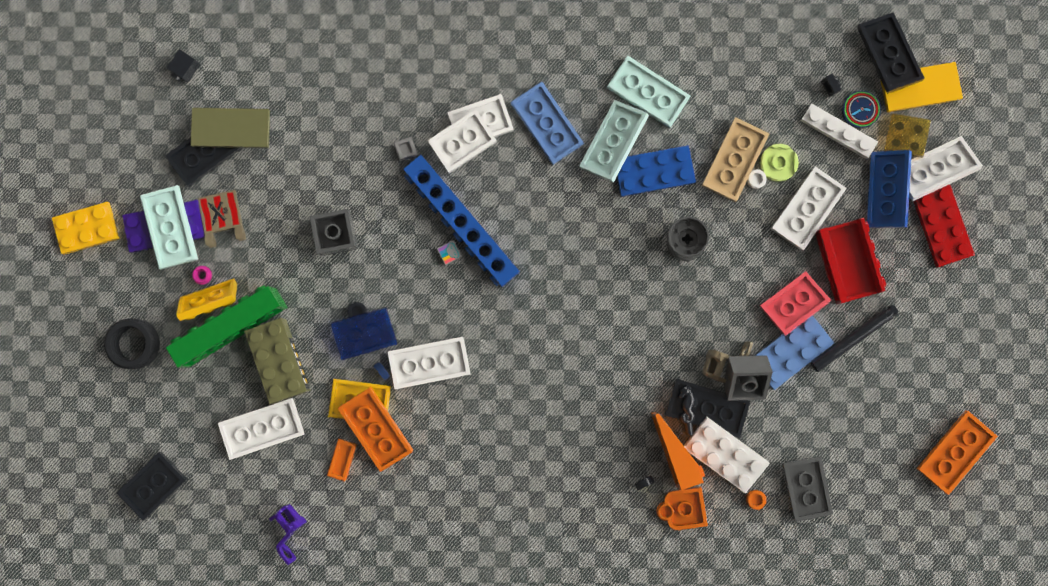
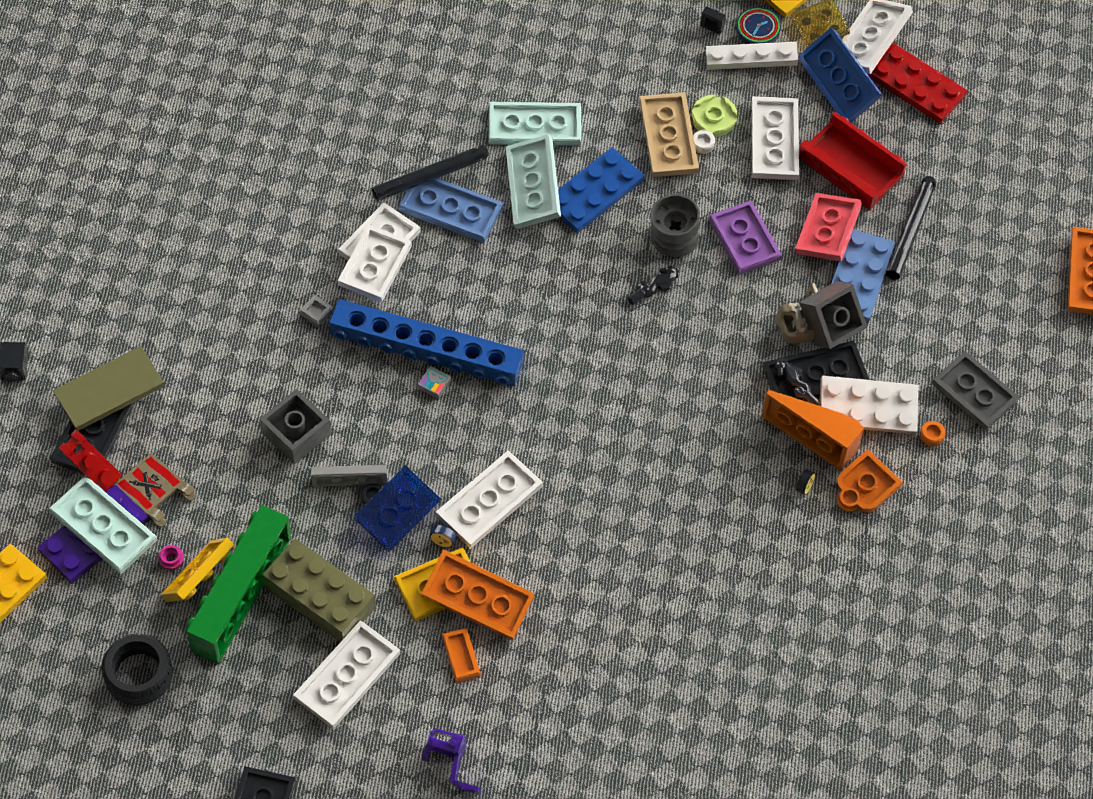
camera: 35 degrees left, 25 degrees down
(182, 178) = (90, 461): none -> red plate
(348, 289) = (349, 475): none -> light grey tile
(547, 90) = (429, 173): none -> black piece
(652, 271) = (659, 281): none -> black animal
(733, 272) = (745, 237): none -> medium lavender tile

